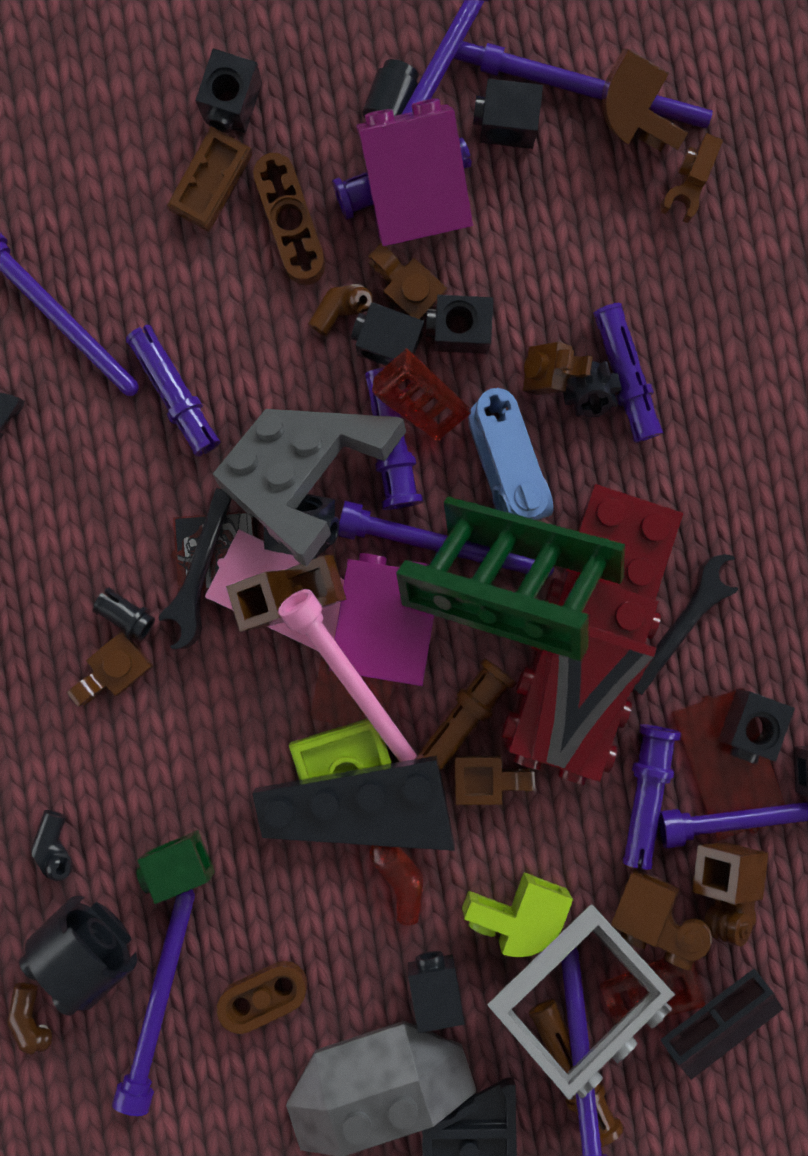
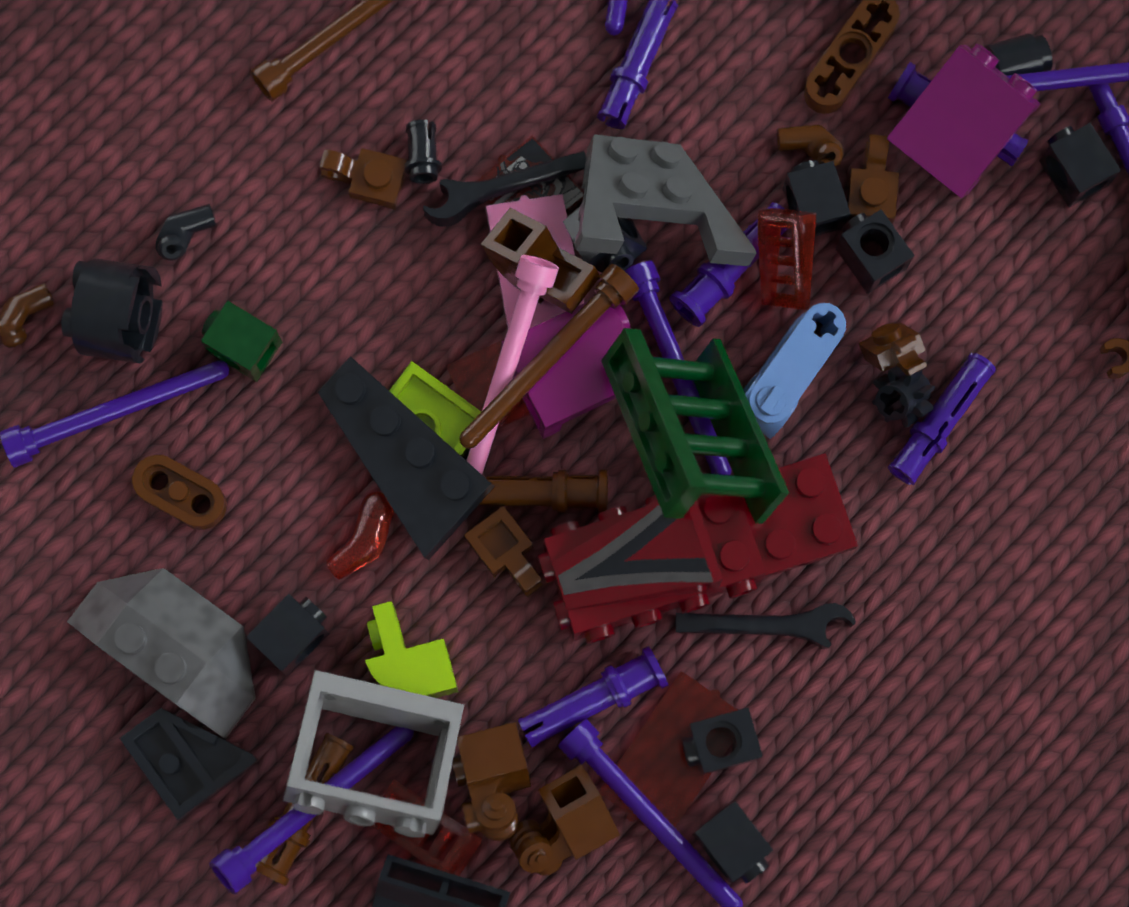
camera: 55 degrees right, 10 degrees down
(352, 556) = (613, 289): none -> reddish brown piece

